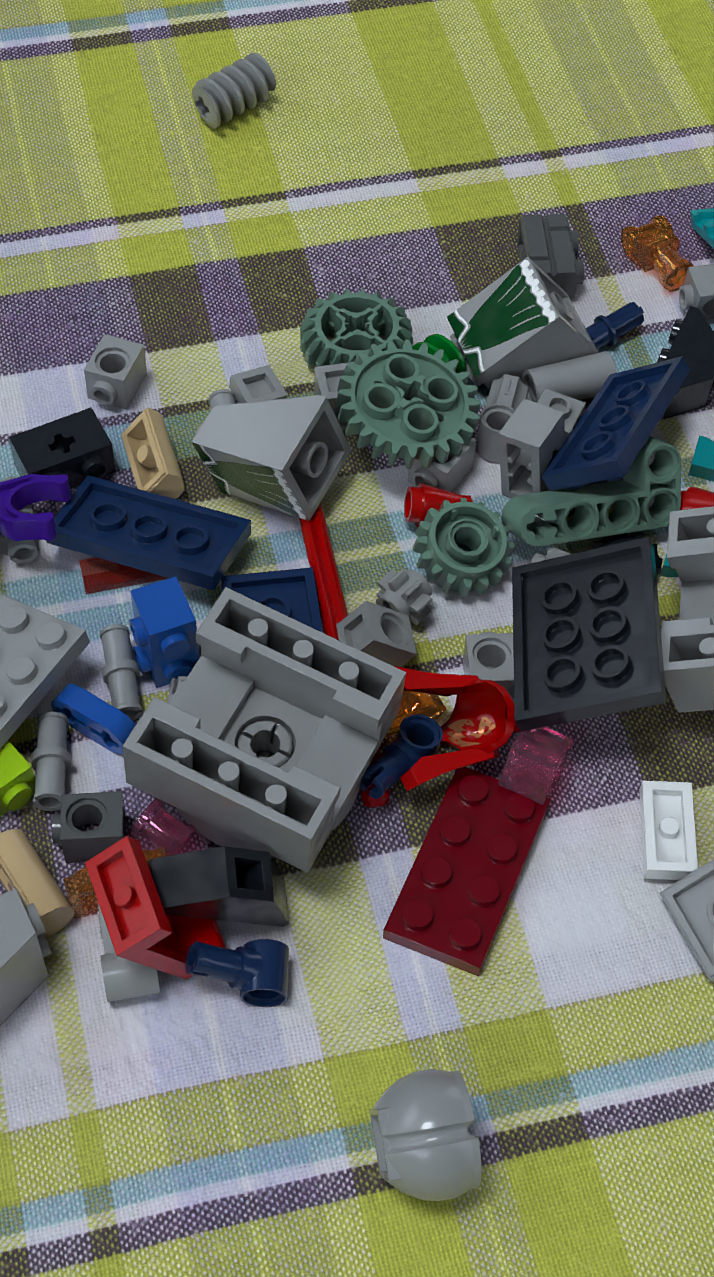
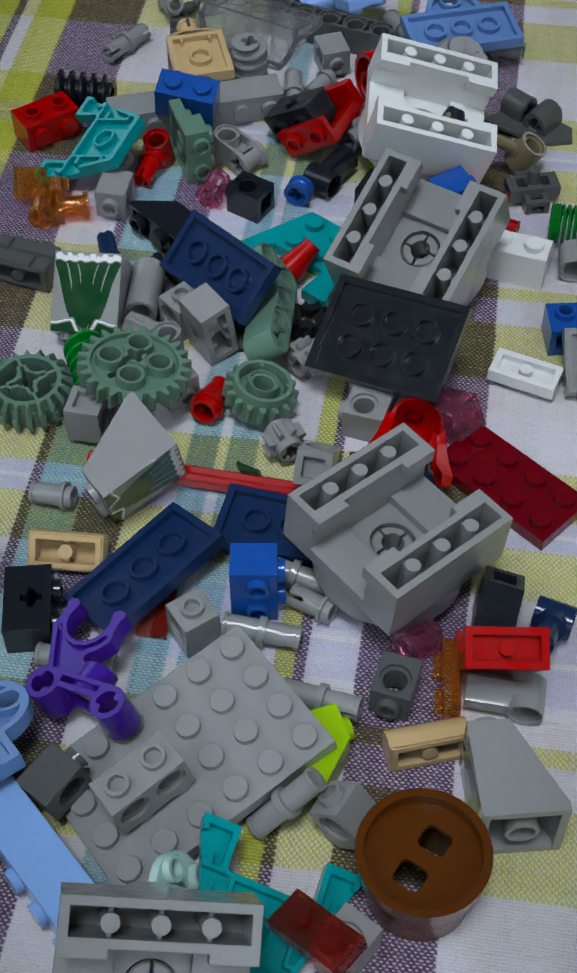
camera: 65 degrees left, 5 degrees down
(94, 717) = (302, 655): blue beam -> none
(98, 599) = (193, 622): none -> light grey brick
(257, 385) = (41, 465): light grey plate -> none
(348, 583) = (243, 468): none -> dark green window
(681, 209) = (29, 178): none -> clear orange plate

